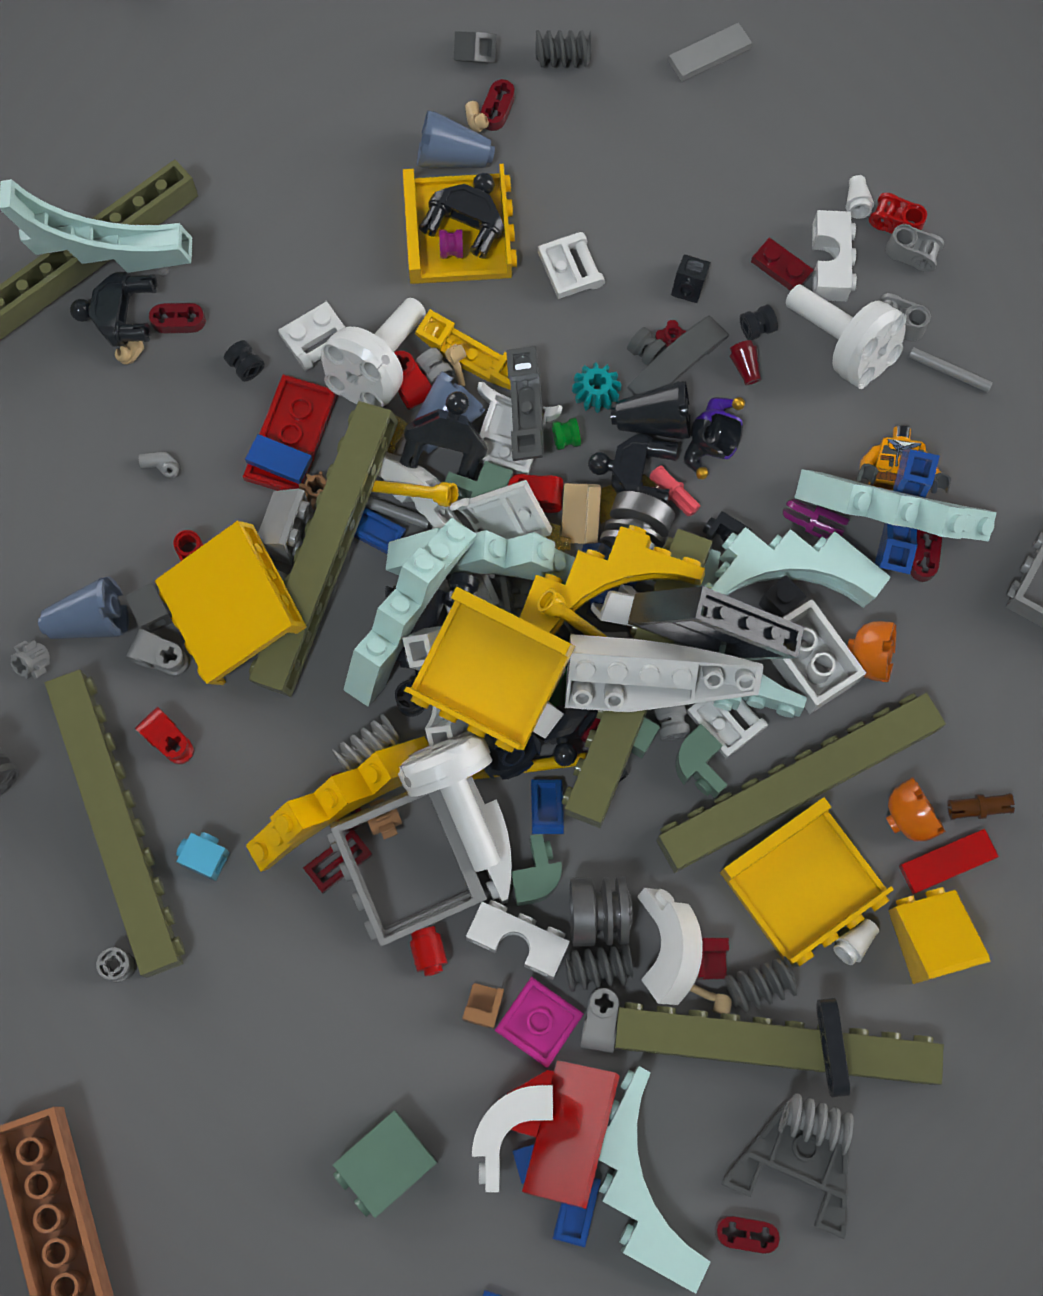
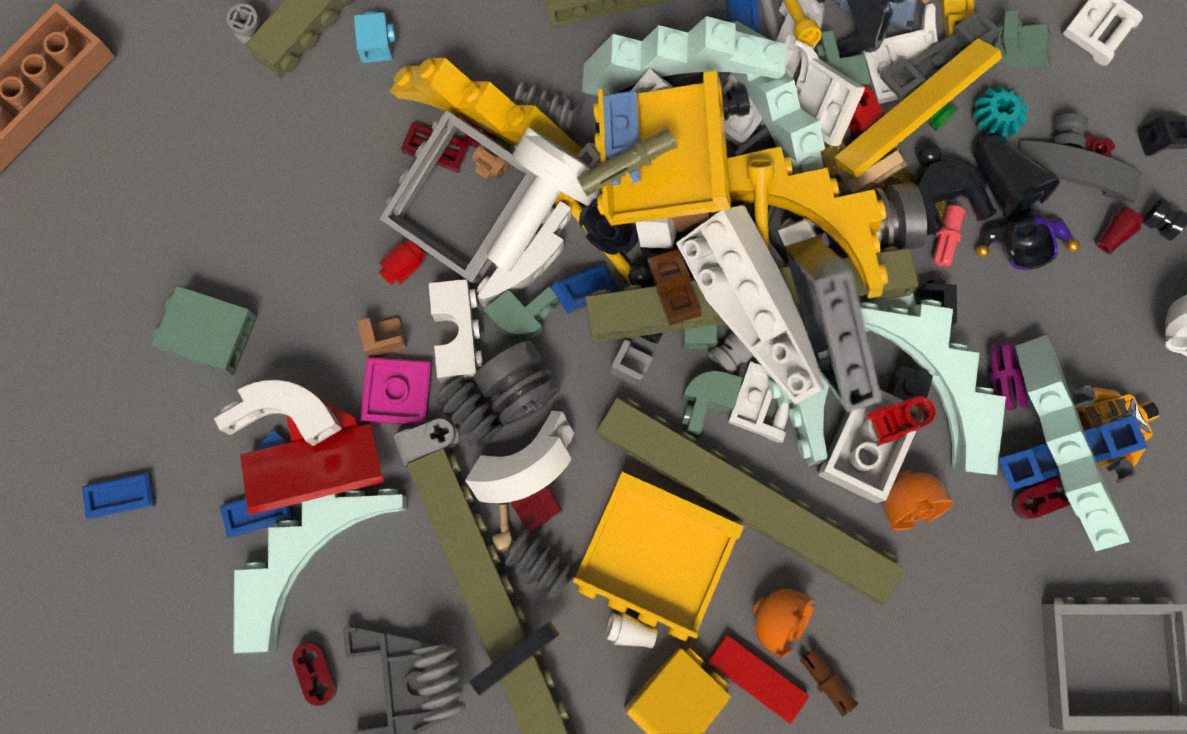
camera: 60 degrees right, 5 degrees up
(455, 693) = (622, 126): none -> medium blue hinge
(489, 703) = (633, 158): none -> olive pin
(551, 334) = (1023, 45): none -> sand green brick
(561, 449) = (918, 107): none -> yellow tile
(601, 732) = (674, 287): none -> reddish brown slope
(633, 808) = (630, 364): none -> light grey panel
(814, 623) = (895, 420): none -> red piece

